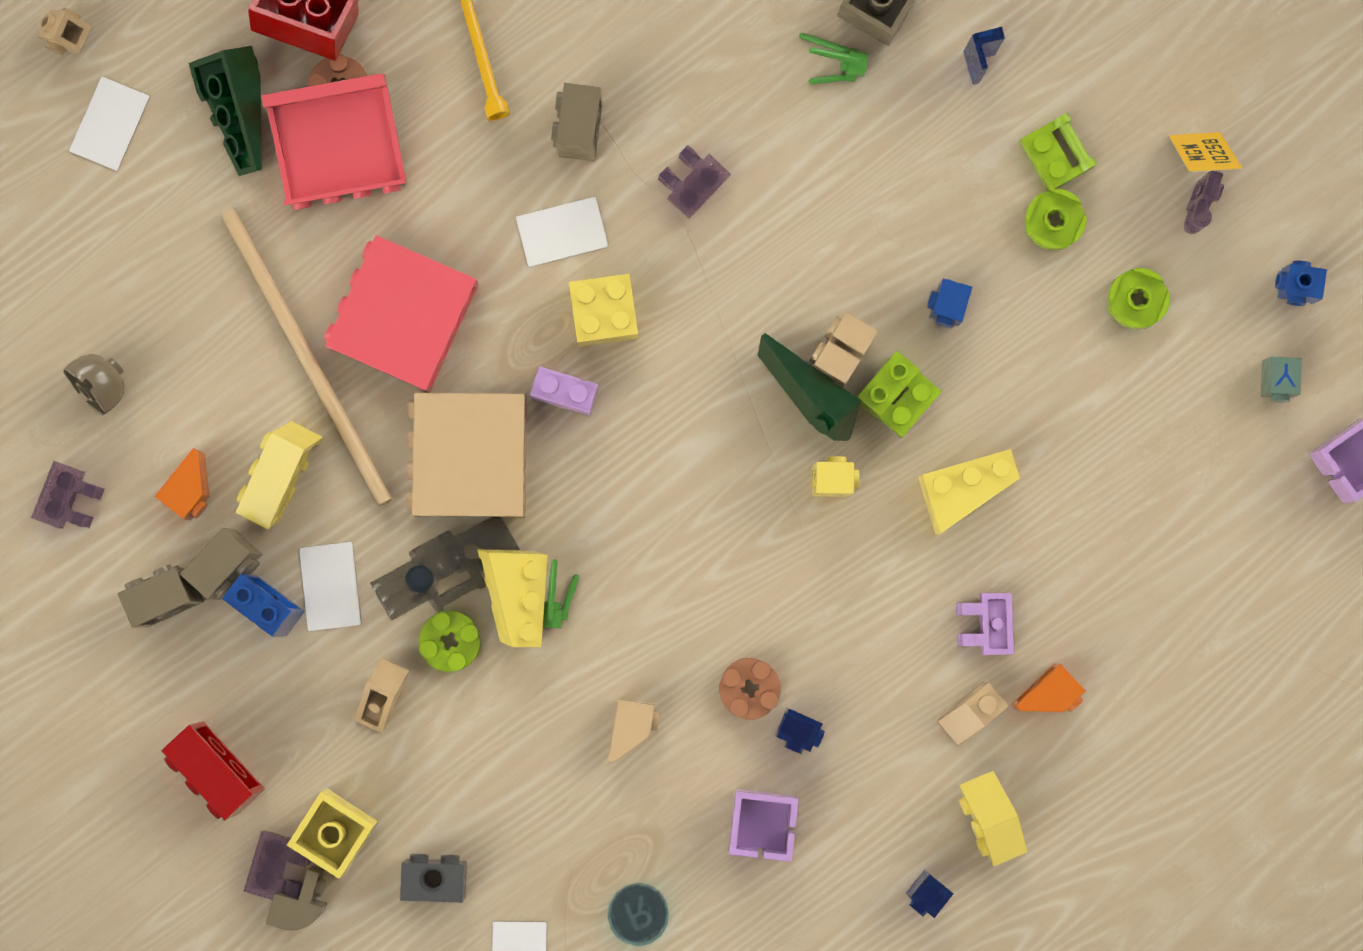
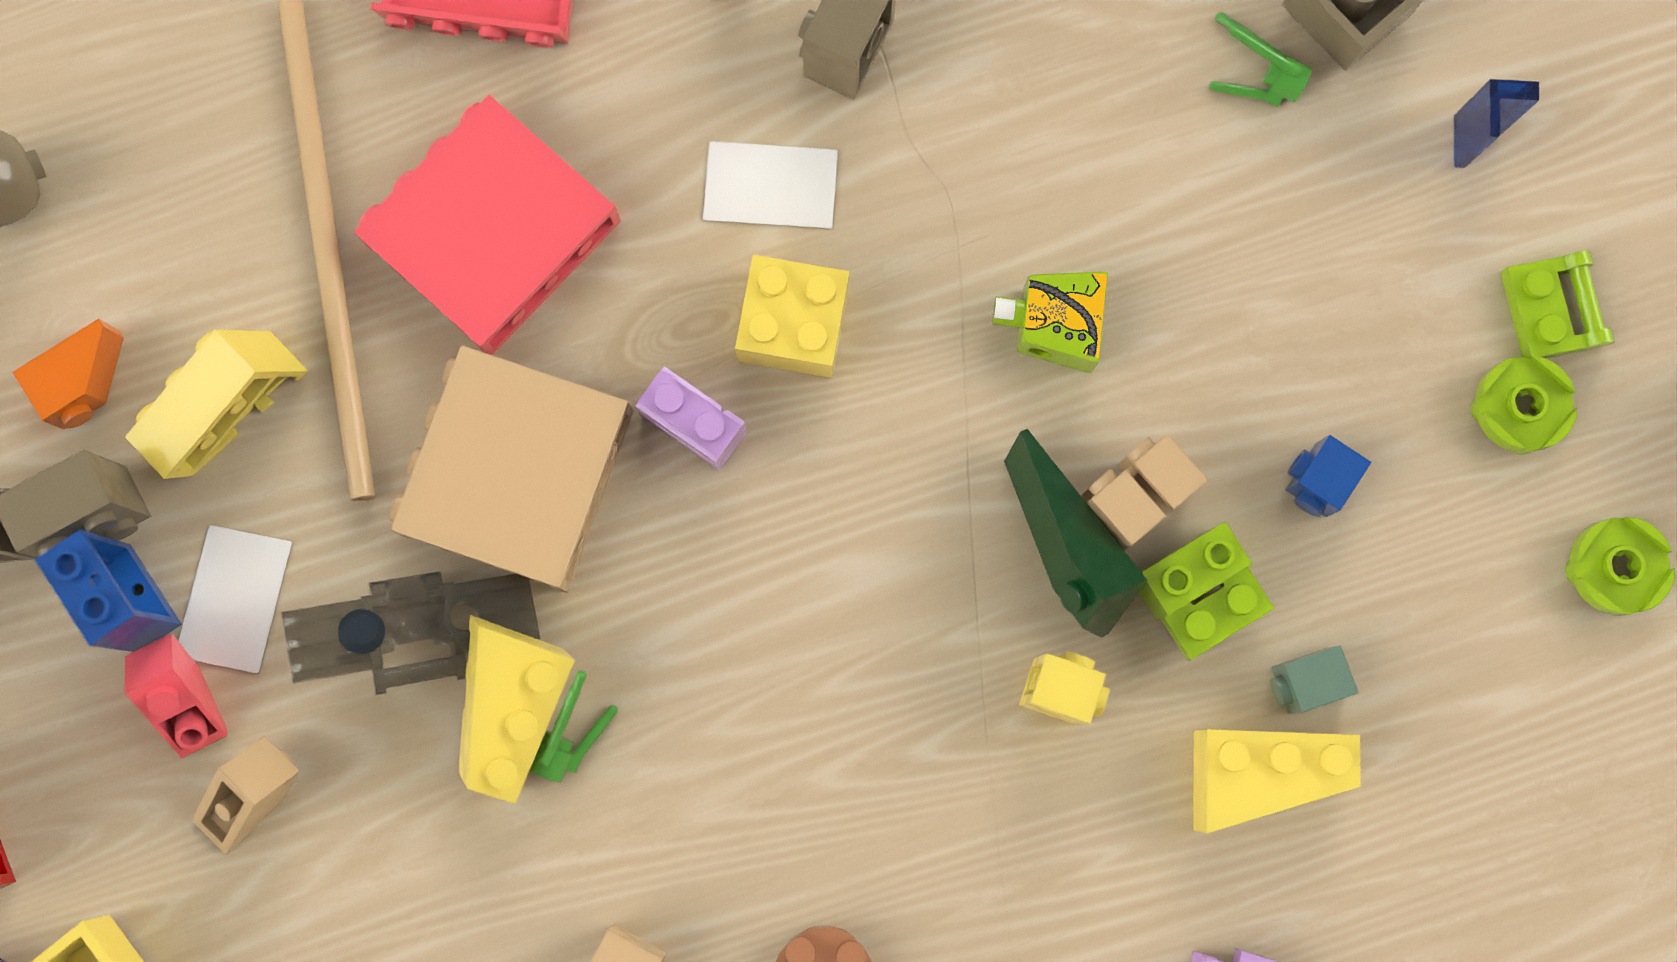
camera: 20 degrees right, 5 degrees down
(319, 652) = (173, 695): none -> coral slope
(465, 634) = (353, 745): lime plate -> none
(698, 185) = (995, 181): plate -> none
(761, 258) = (1058, 318): none -> torso
(977, 426) = (1313, 680): none -> sand green brick

